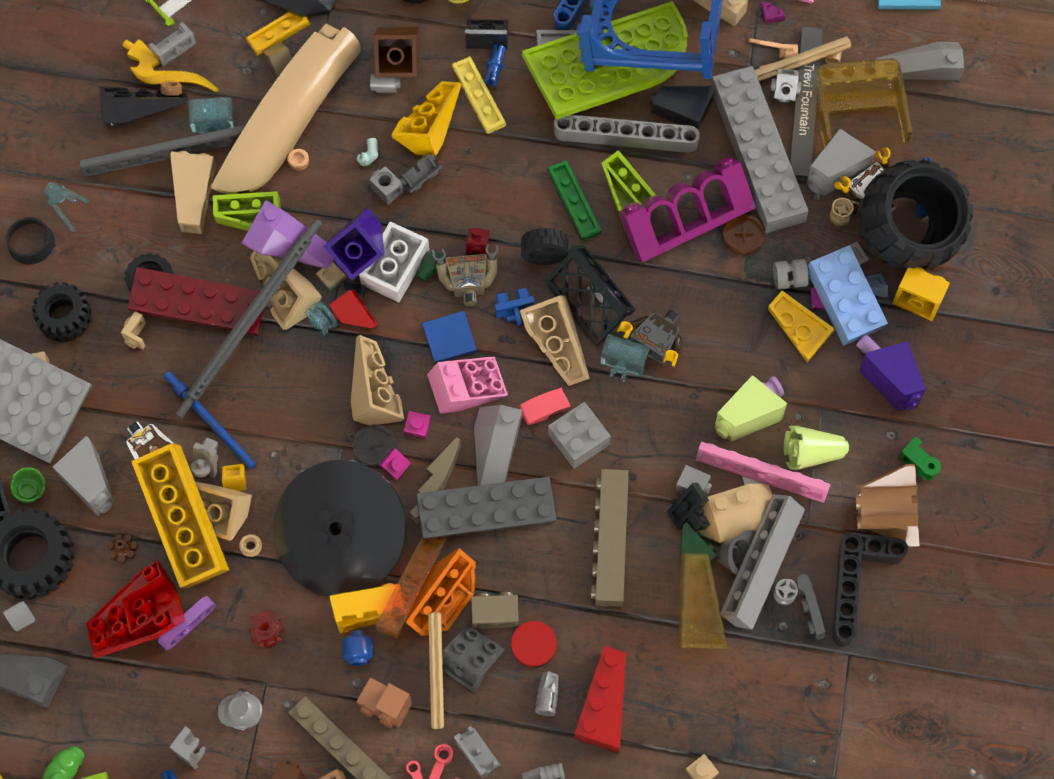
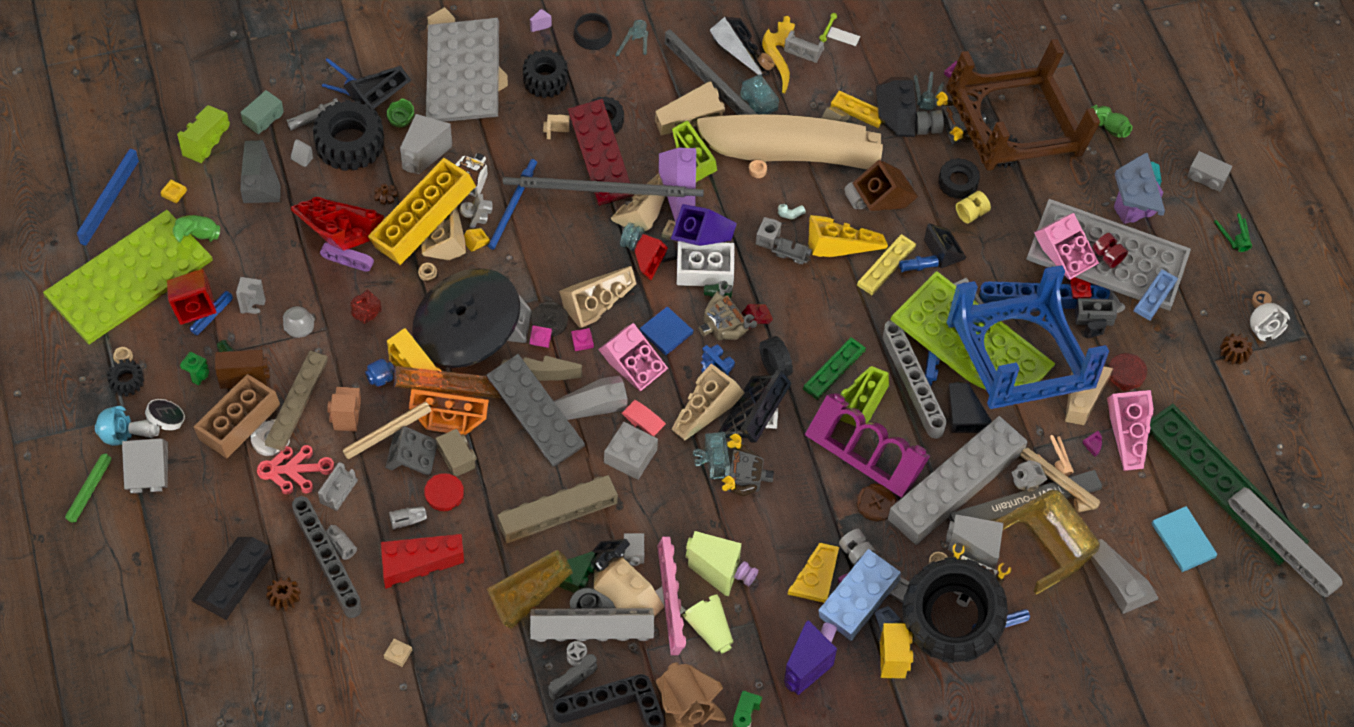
camera: 60 degrees right, 10 degrees down
(619, 111) = (930, 371): none -> blue plate

